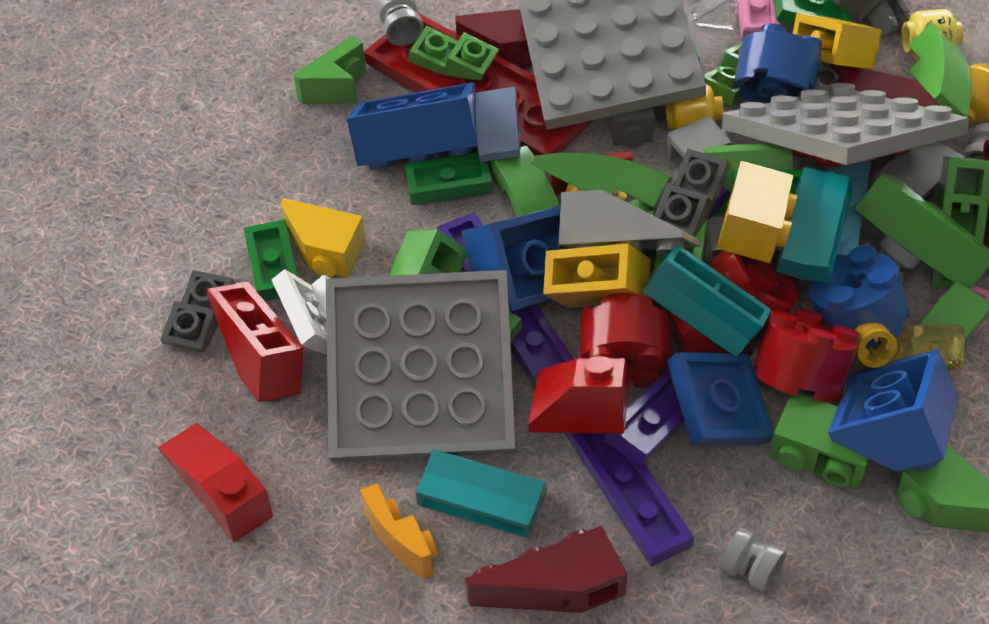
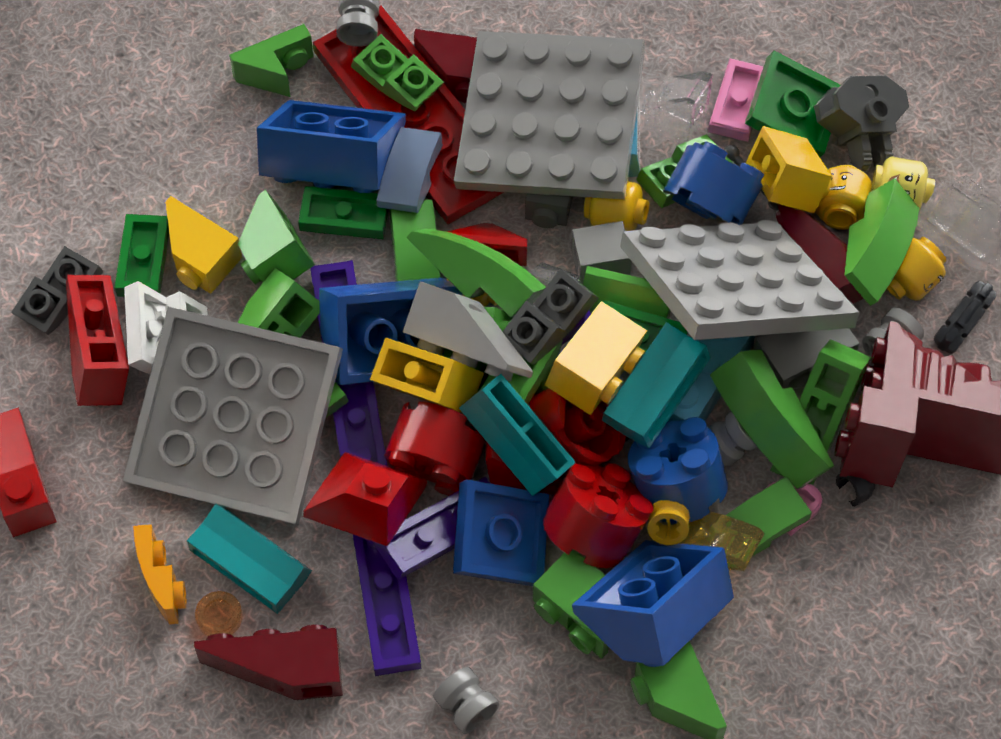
camera: 15 degrees right, 10 degrees up
(393, 212) = (271, 242): none -> slope
(470, 552) = (218, 613): none -> clear orange tile
(894, 52) = (845, 198): none -> yellow head

